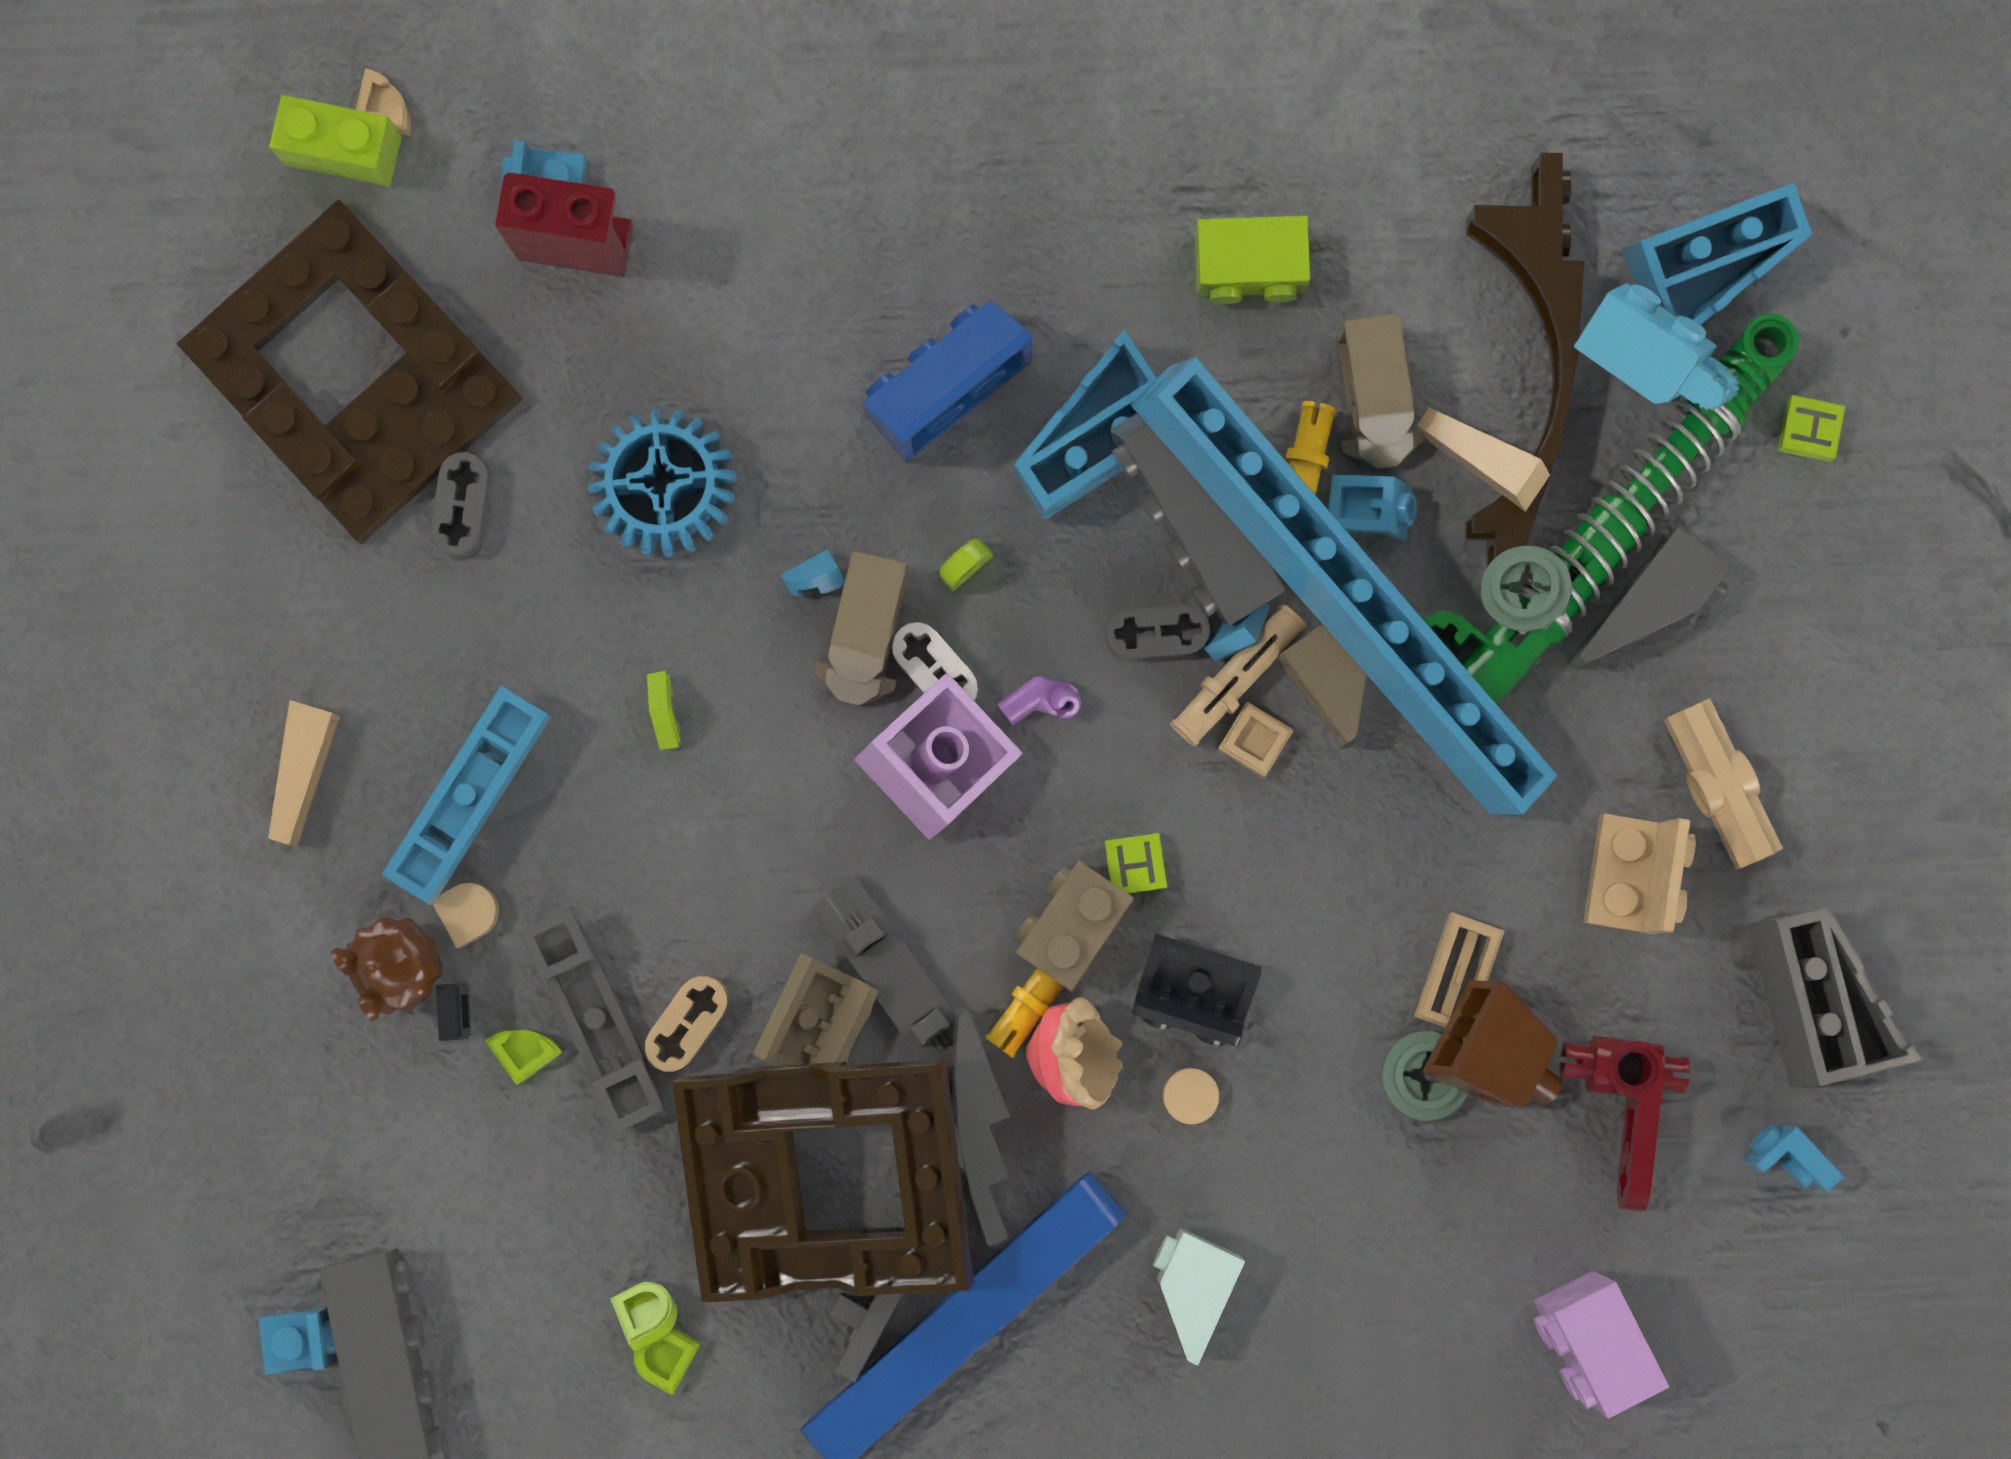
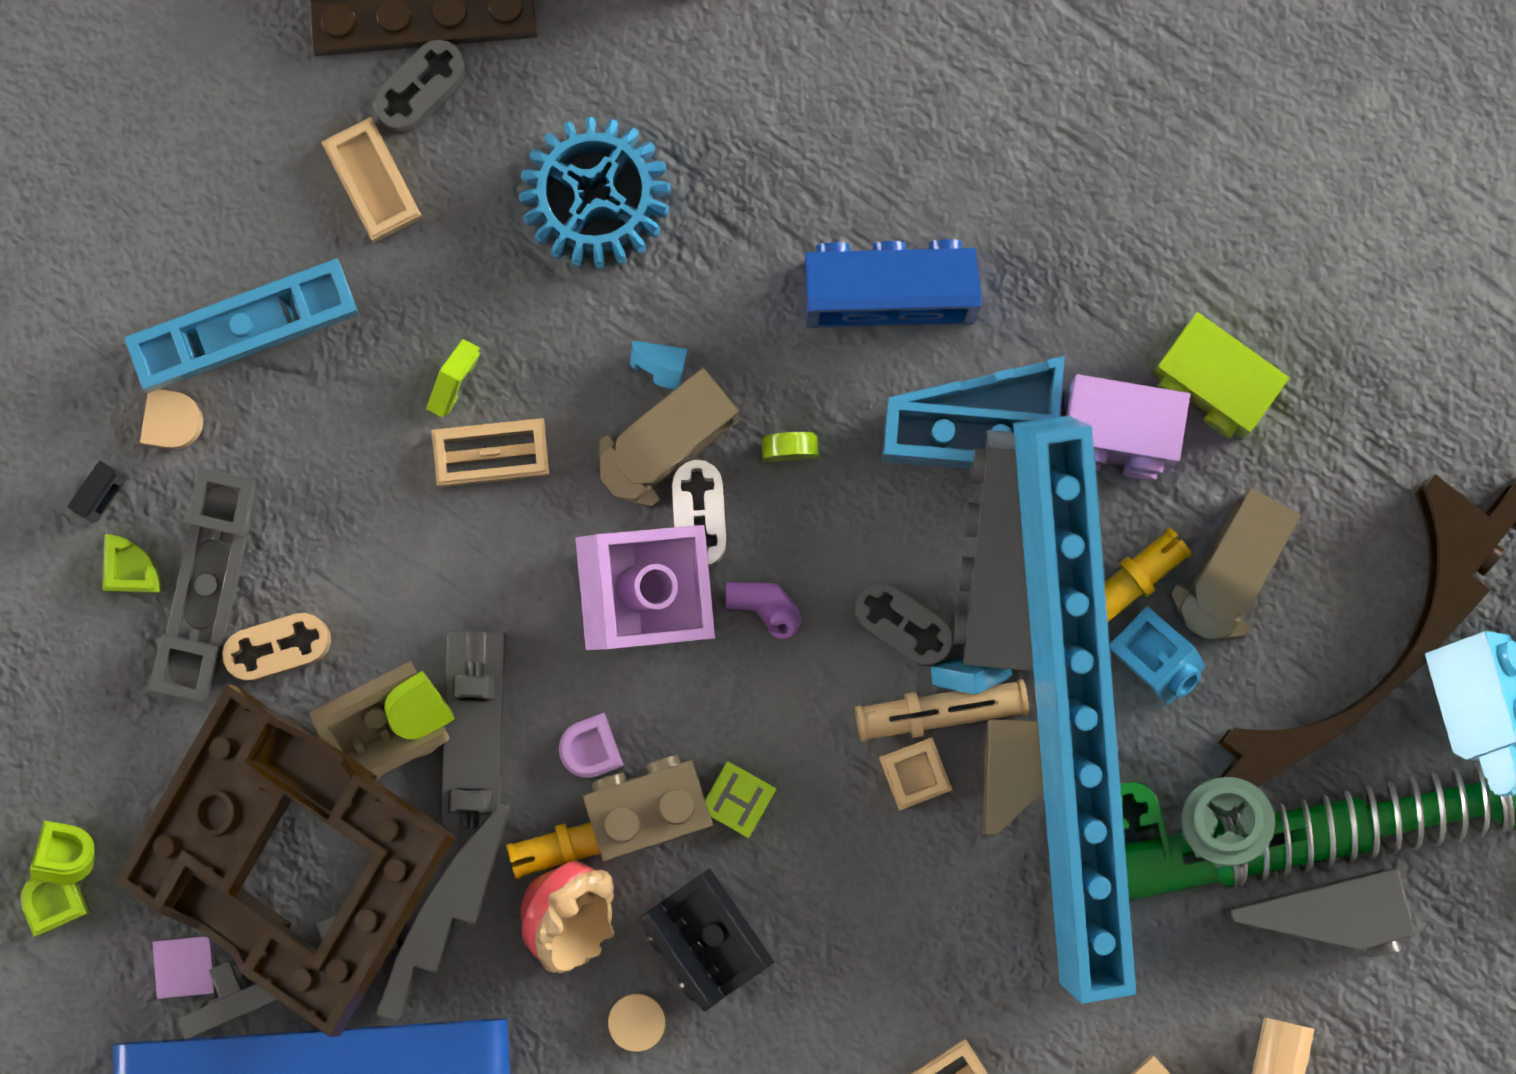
camera: 35 degrees right, 0 degrees up
(302, 759) = (135, 194): tan piece -> none
(390, 966) = (74, 416): reddish brown animal -> none
(480, 606) = (372, 180): none -> tan tile
(703, 778) = (537, 448): none -> tan tile
(808, 1327) = (183, 967): none -> lavender tile
(834, 985) = (416, 708): none -> lime tile
(991, 913) = (590, 748): none -> lavender tile
(1223, 334) = (1130, 423): none -> lavender brick
(1498, 464) = (1288, 706): tan piece -> none

